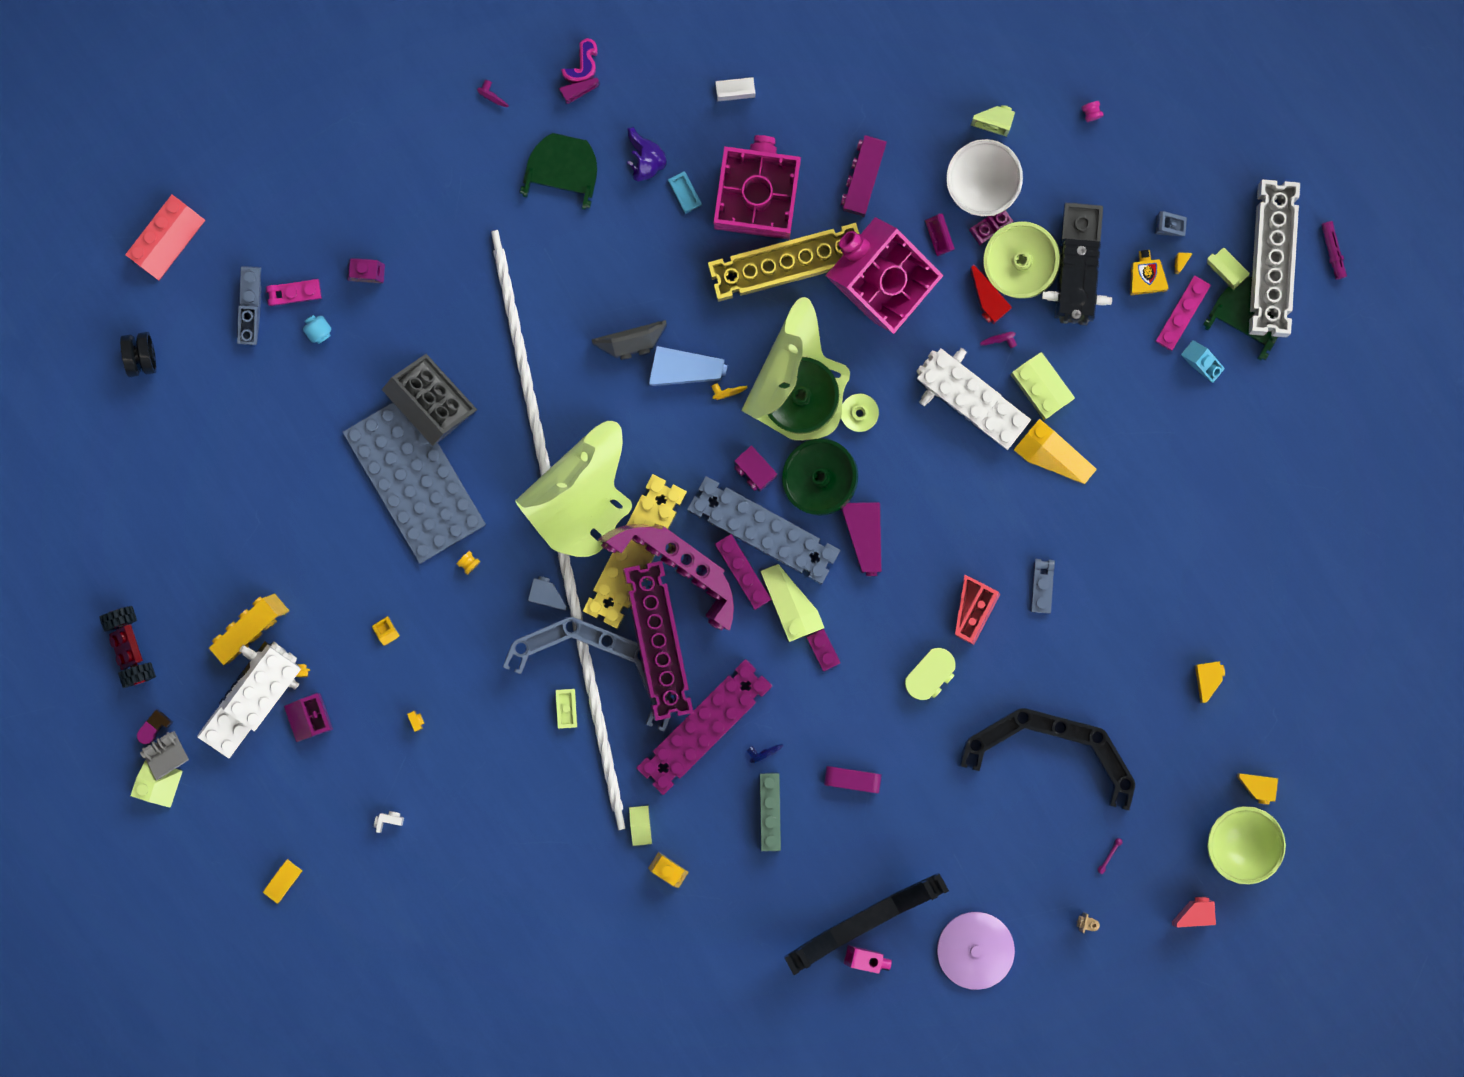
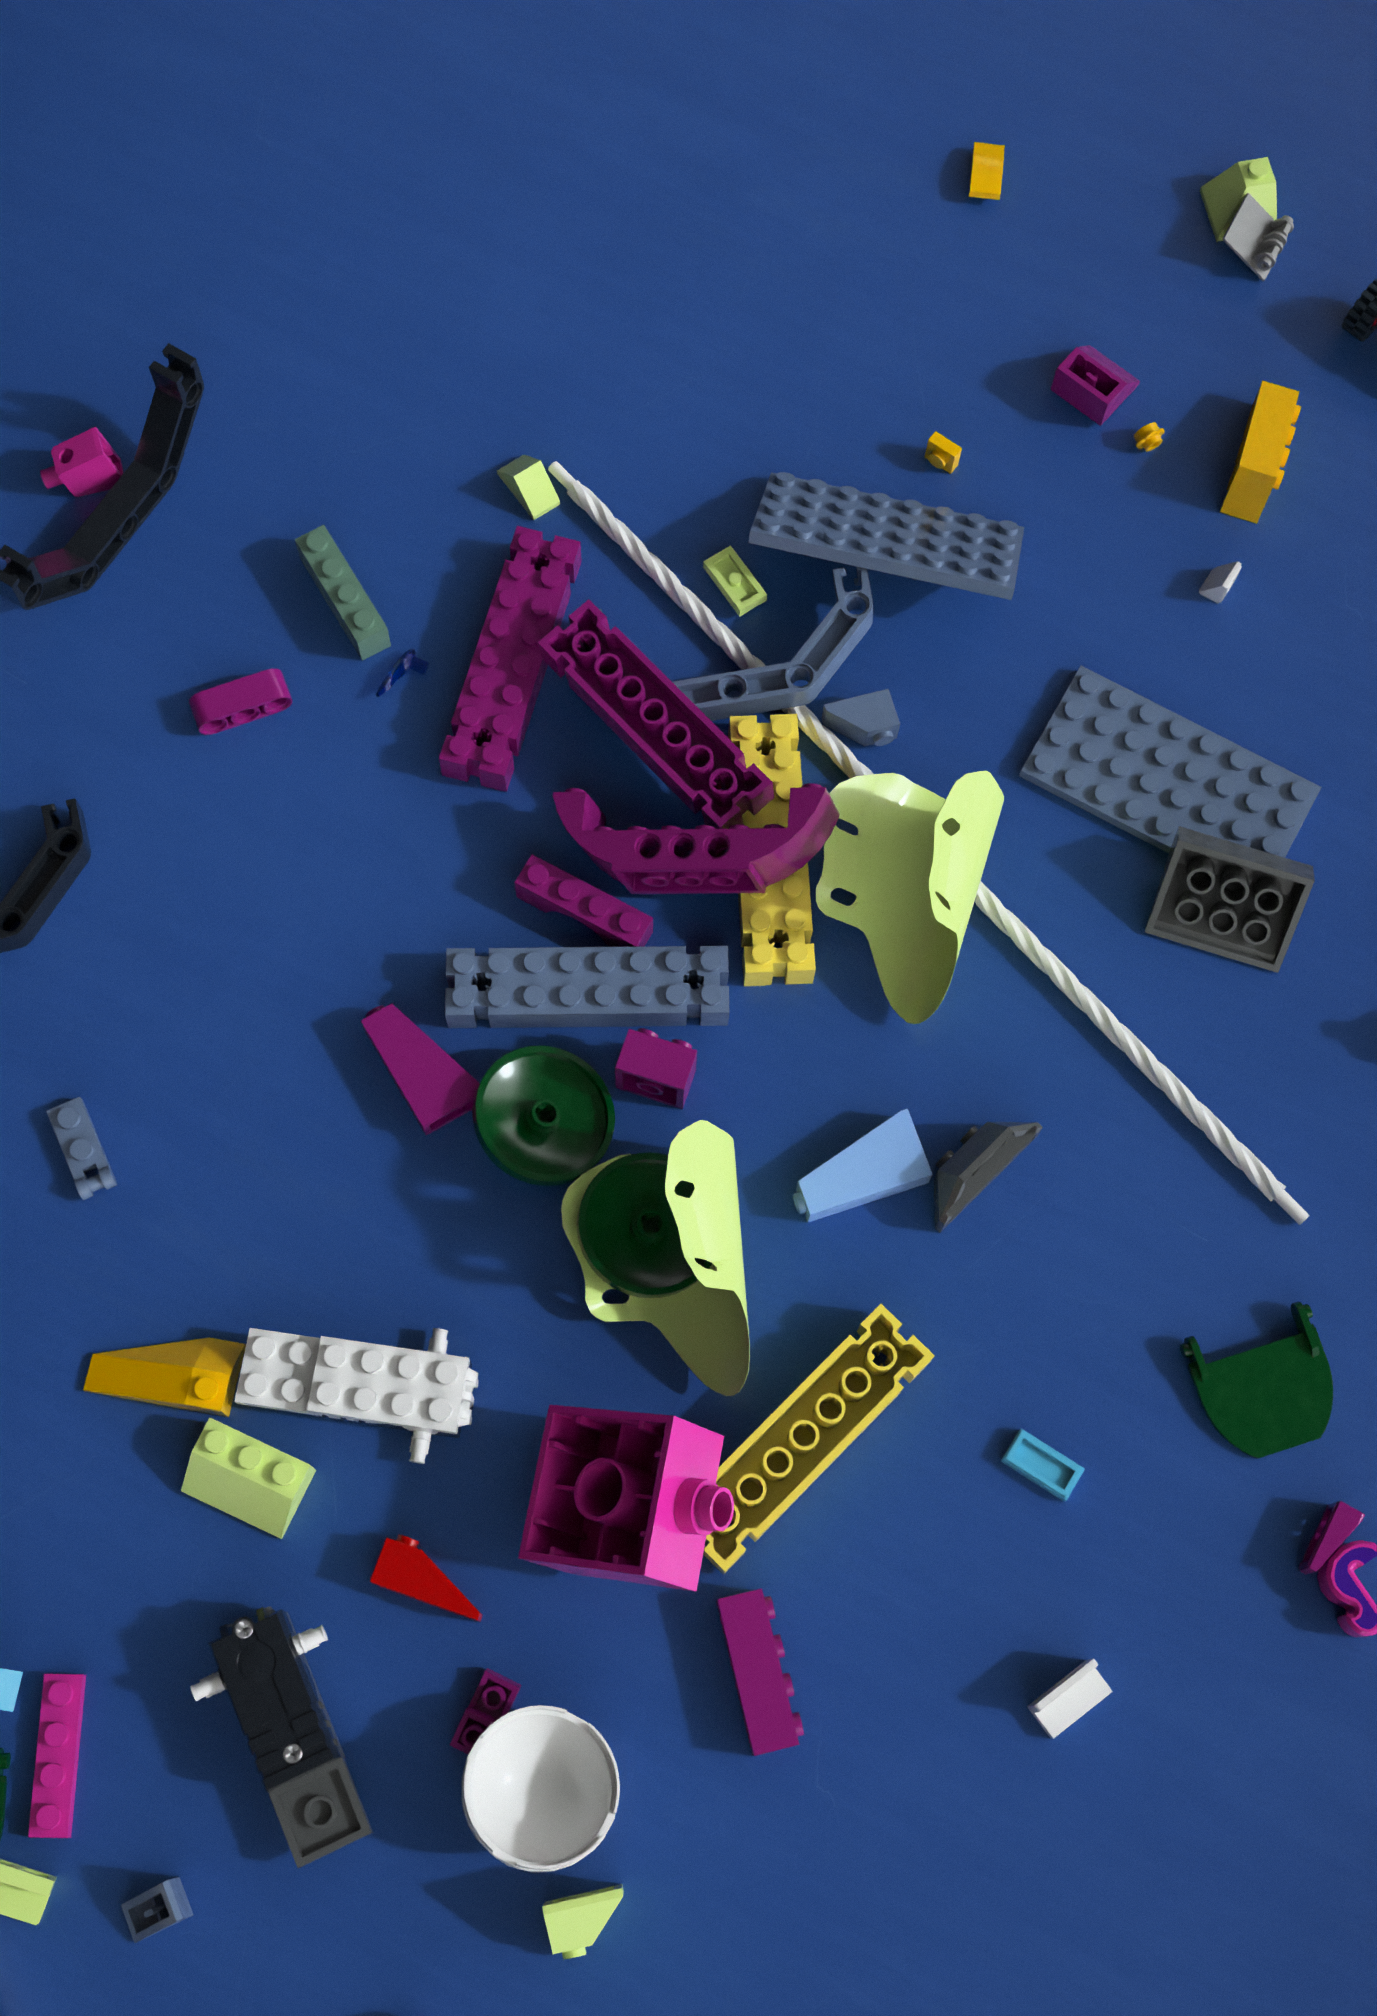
camera: 145 degrees right, 15 degrees down
(152, 726) = (1297, 273): leg -> none
(250, 696) = (1197, 359): white piece -> none
(318, 569) = (1220, 581): none -> white slope
(385, 631) = (1066, 552): yellow slope -> none
(392, 818) = (895, 312): white bracket -> none
(468, 562) = (1010, 702): yellow wheel -> none
(477, 683) = (888, 535): none -> sand blue plate
(650, 157) = (1136, 1488): dark purple piece -> none
(668, 870) = (452, 439): yellow torso -> none
(719, 394) = (772, 1172): yellow bar -> none
(757, 190) = (928, 1525): dark pink brick -> none
(792, 606) = (470, 895): yellowish green wedge -> none
(823, 650) = (391, 865): magenta plate -> none
(866, 405) = (529, 1241): yellowish green dish -> none
(930, 674) = (198, 913): yellowish green brick -> none
(939, 234) = (567, 1643): magenta plate -> none
(974, 609) = (176, 1051): coral wedge -> none
(1008, 336) = (364, 1522): magenta bar -> none
(1022, 260) = (396, 1680): yellowish green dish -> none
(1147, 275) = (154, 1785): yellow torso -> none
(1180, 261) = (103, 1848): yellow slope -> none

